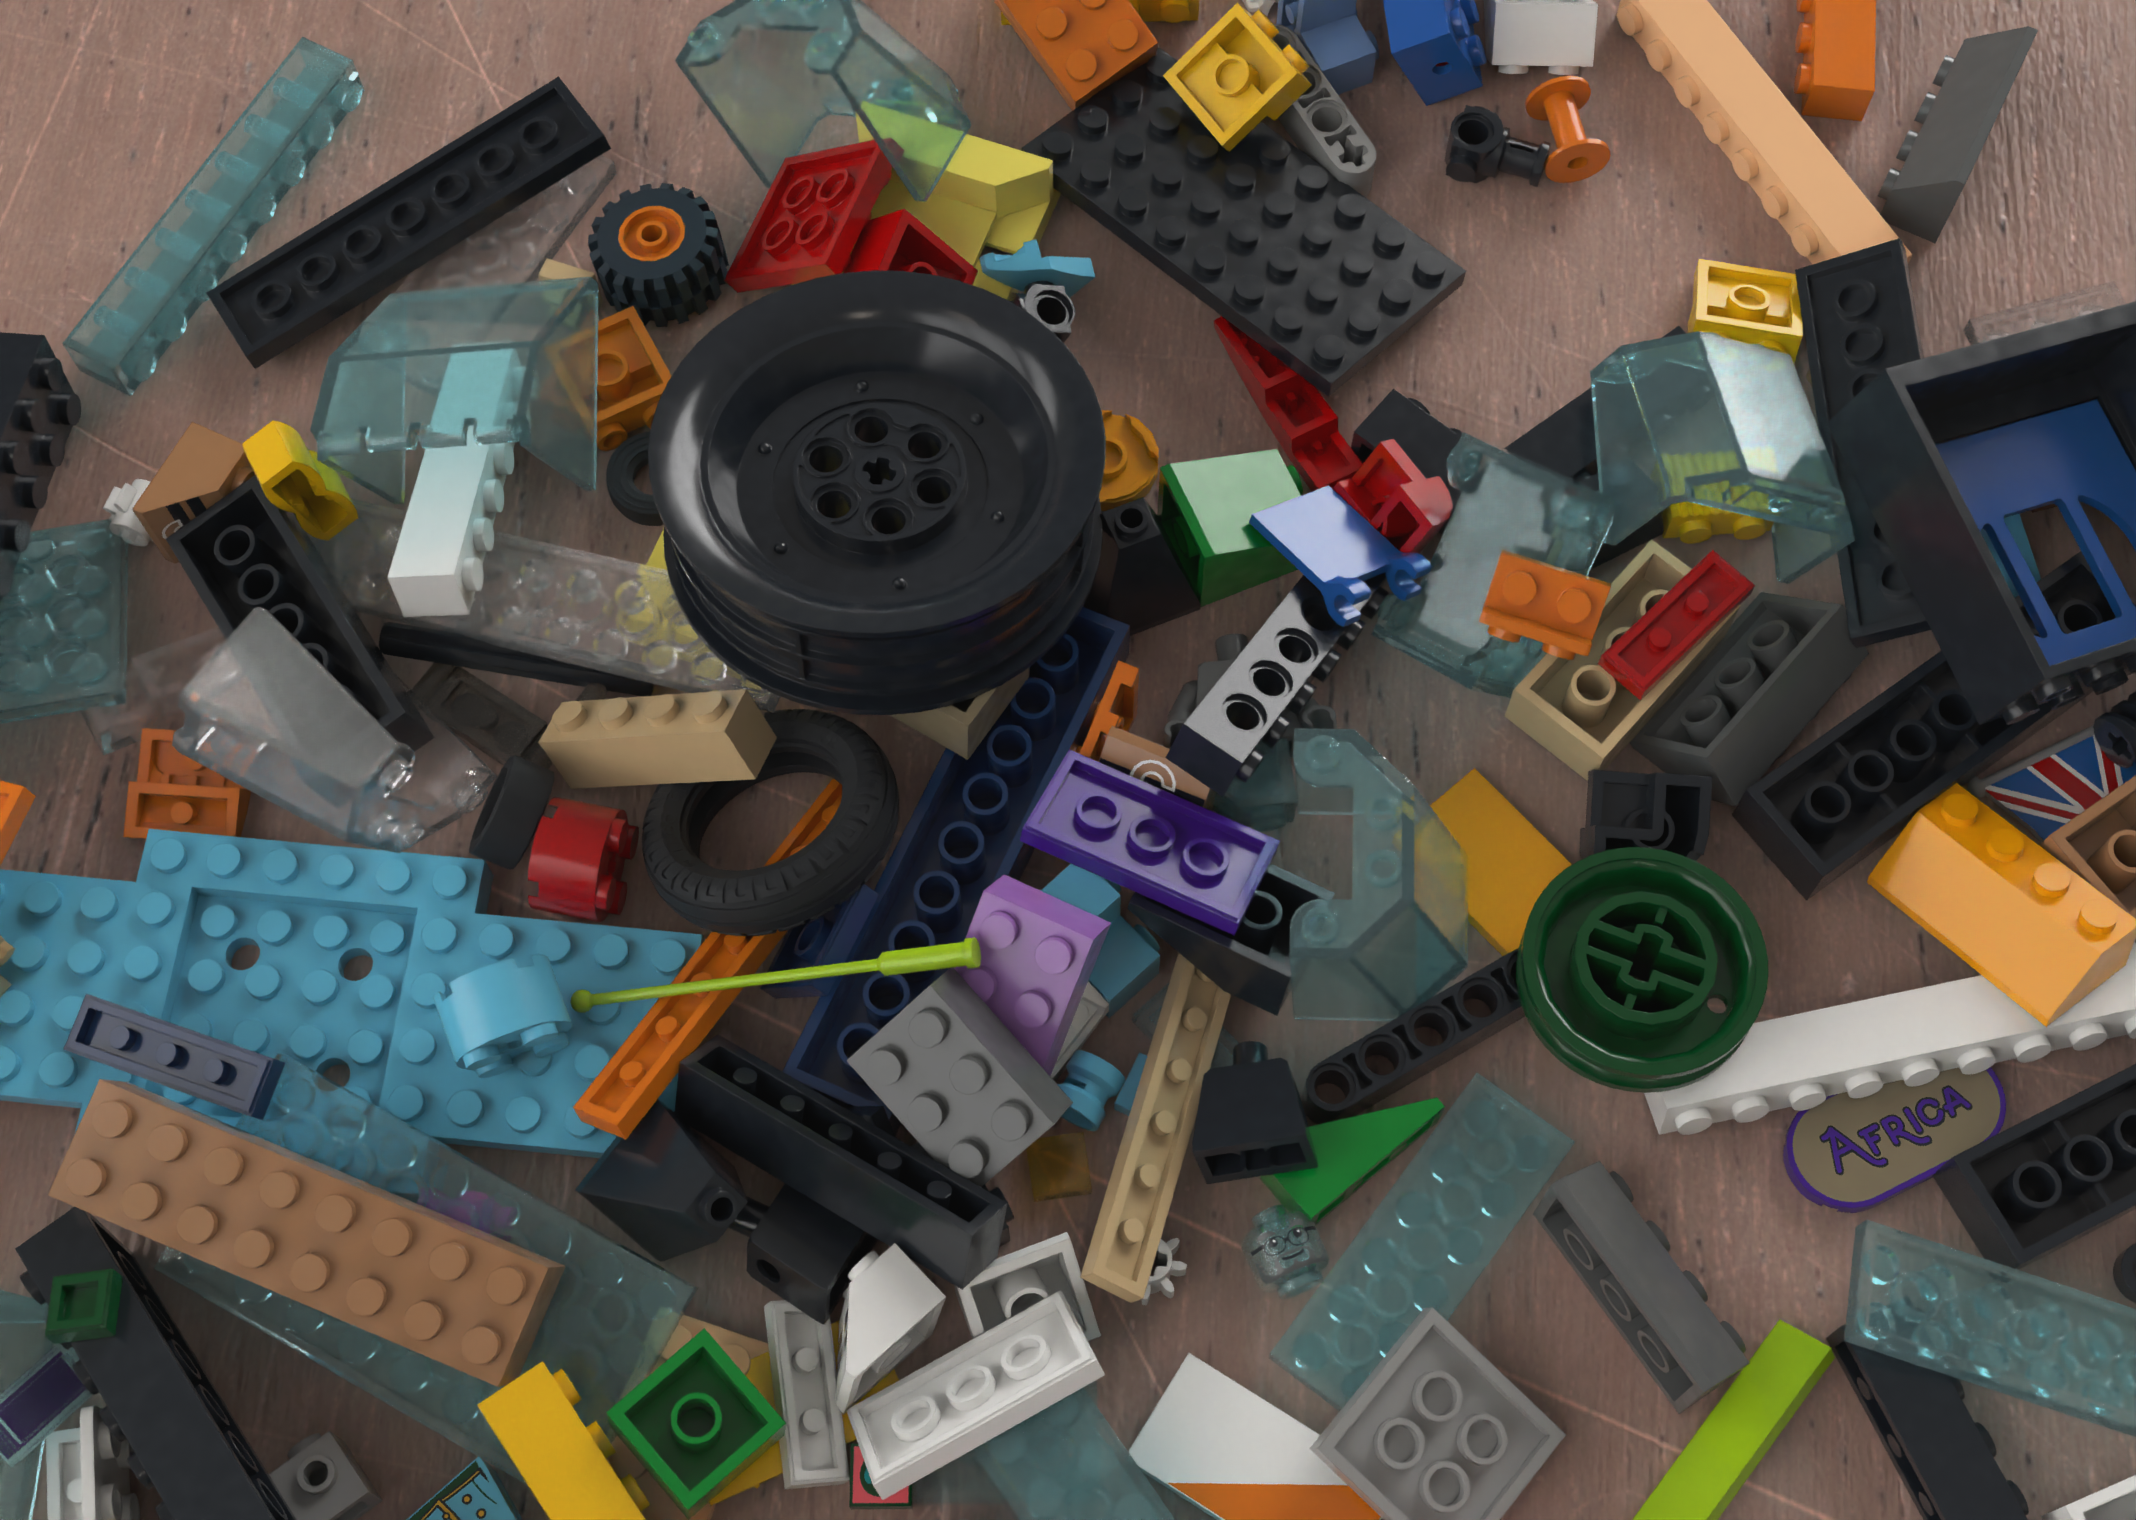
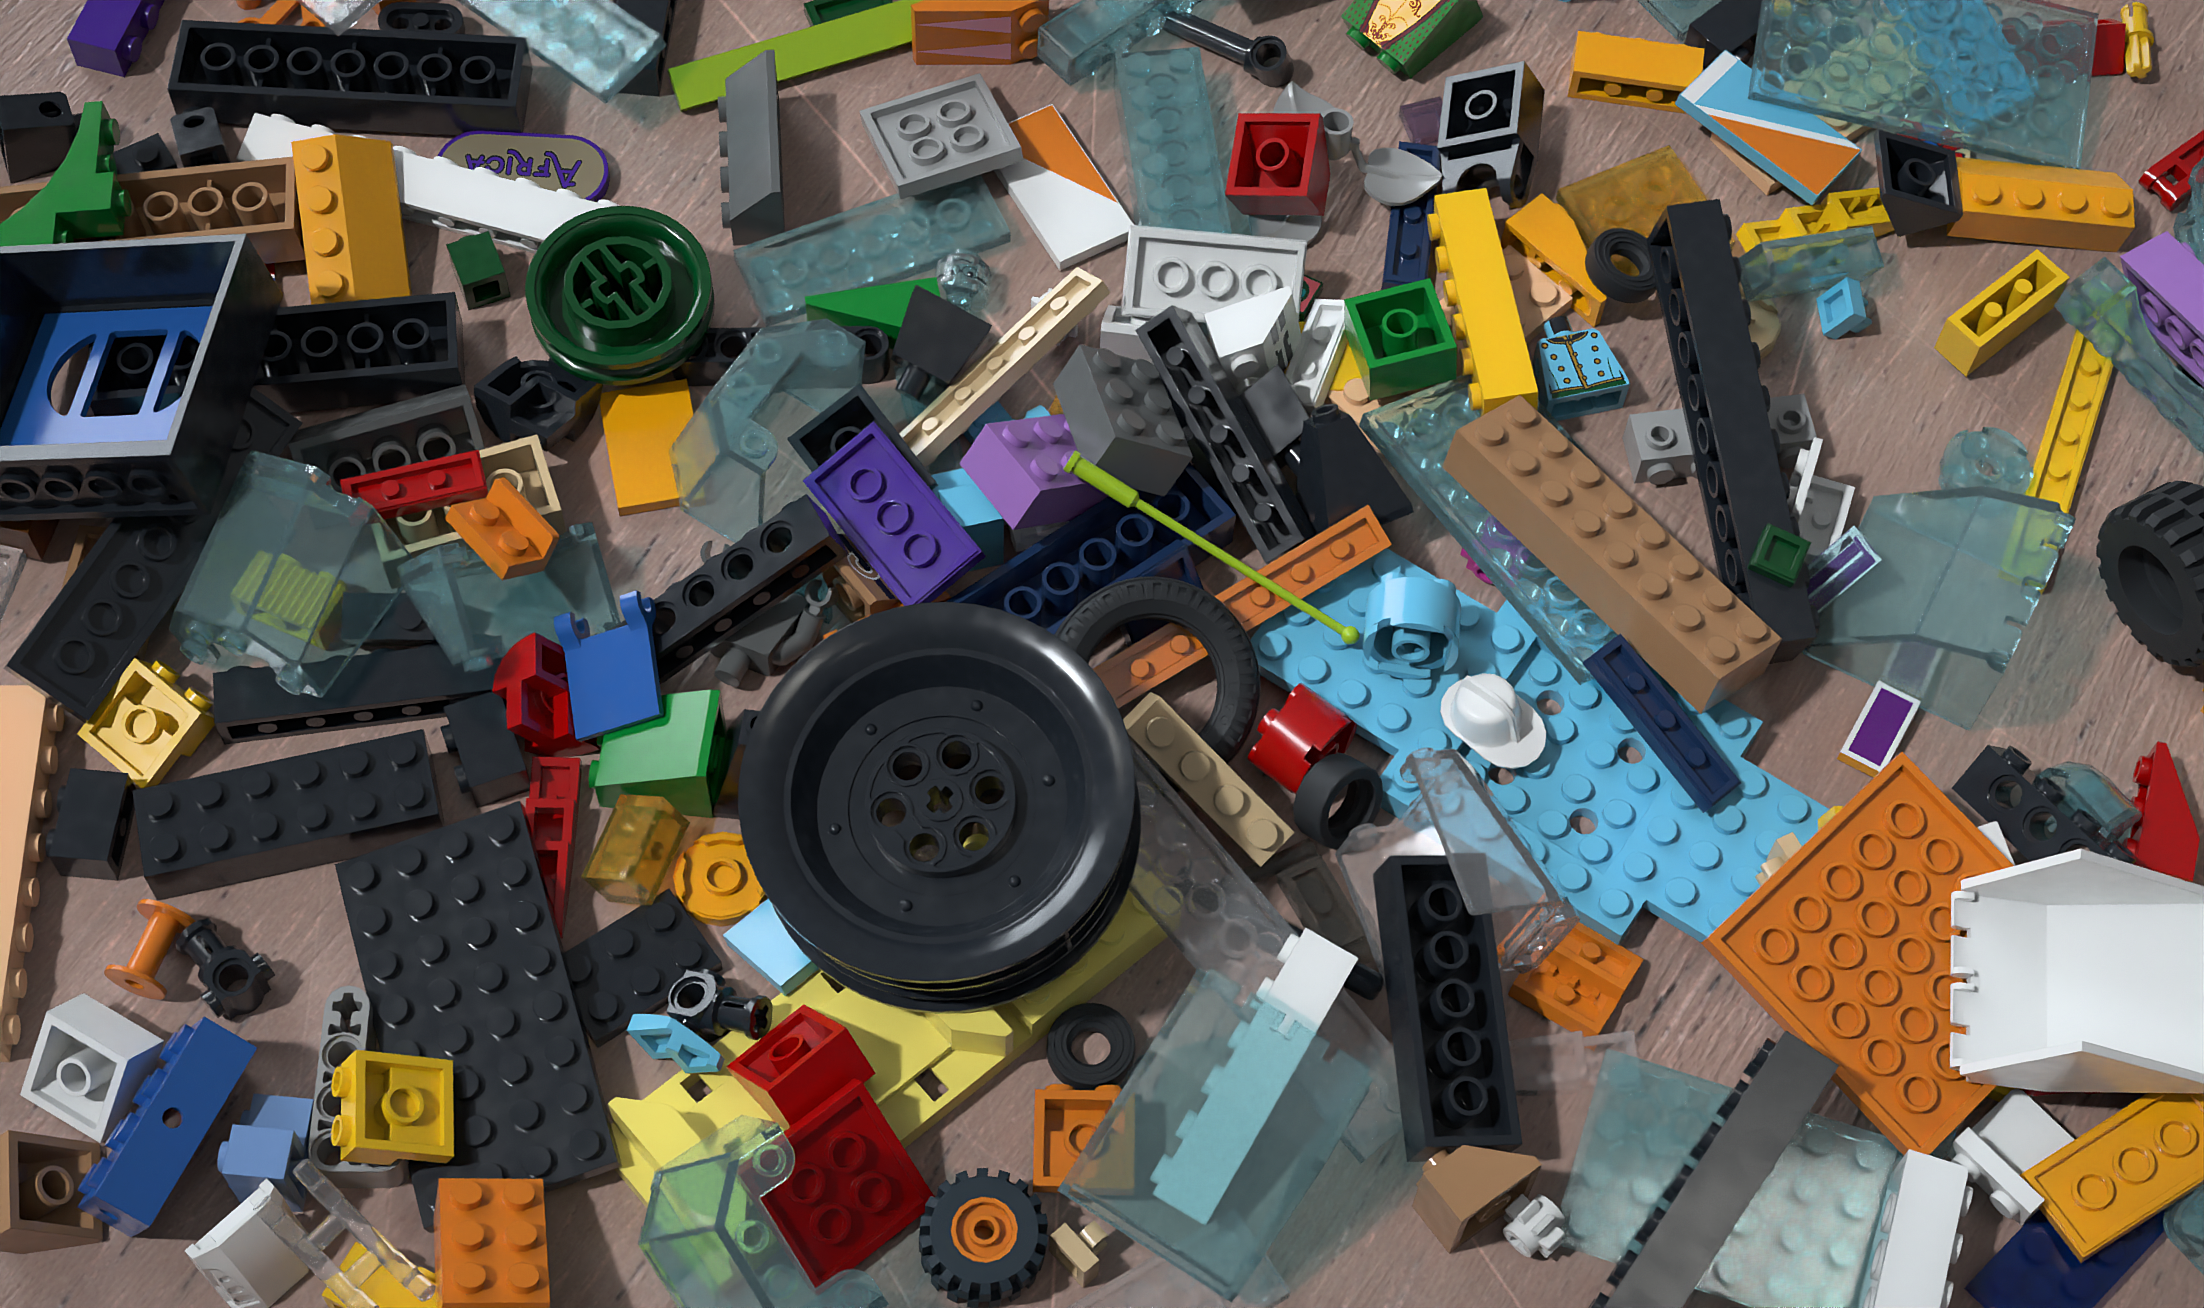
camera: 155 degrees left, 5 degrees down
(298, 481) = (1390, 1140): yellow brick -> none
(377, 986) = (1494, 720): none -> white piece
(1137, 338) = (635, 965): none -> black plate
(1197, 412) = (635, 849): none -> clear yellow brick
(1543, 299) = (286, 814): none -> black brick
(1714, 206) = (92, 824): none -> black brick
(1837, 960) = (478, 270): none -> dark green brick

